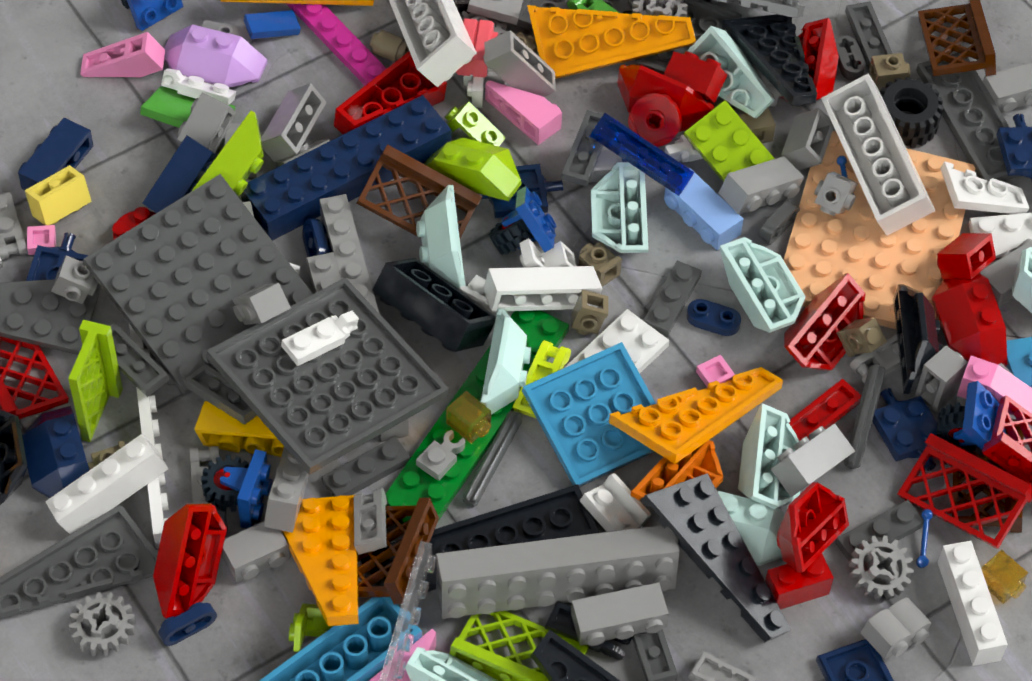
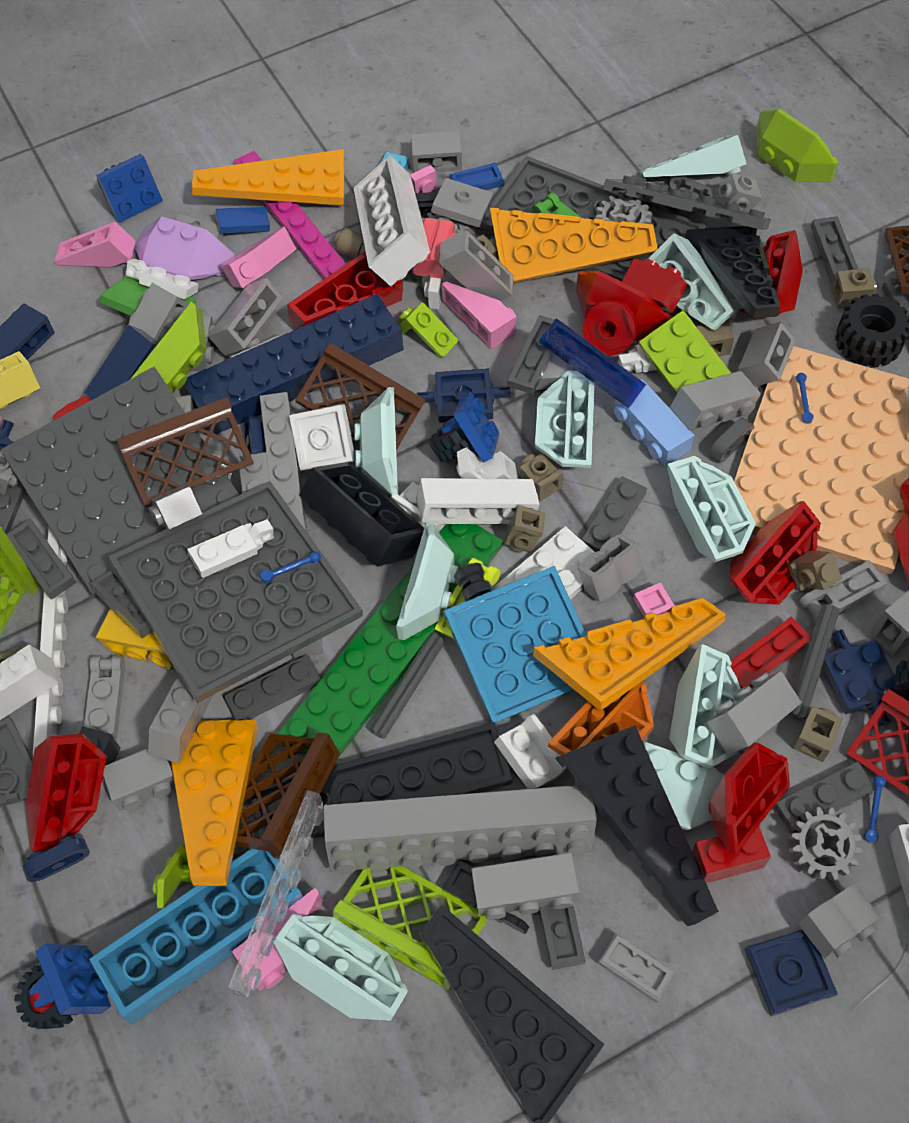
camera: 10 degrees right, 5 degrees up
(240, 484) = (129, 703): blue plate -> none
(253, 230) = (177, 427): none -> reddish brown fence
(294, 64) = (258, 258): none -> bright pink slope
(358, 361) = (267, 575): none -> blue hinge
(370, 521) = (263, 755): light grey plate -> none
(386, 235) = (322, 437): none -> white plate
(440, 457) = (349, 683): light grey plate -> none
(469, 417) = (384, 640): clear yellow brick -> none
(478, 167) = (424, 370): lime wedge -> none
(546, 359) = (472, 581): none -> black wheel
(673, 343) = (610, 567): none -> light grey brick
(713, 317) = (655, 540): dark blue plate -> none
(841, 187) = (800, 406): light grey brick -> none
(854, 57) = (818, 272): dark grey beam -> none
(871, 478) = (817, 744): none -> dark tan brick
(877, 154) = (841, 374): white brick -> none
(915, 334) = (874, 573): black wedge -> none

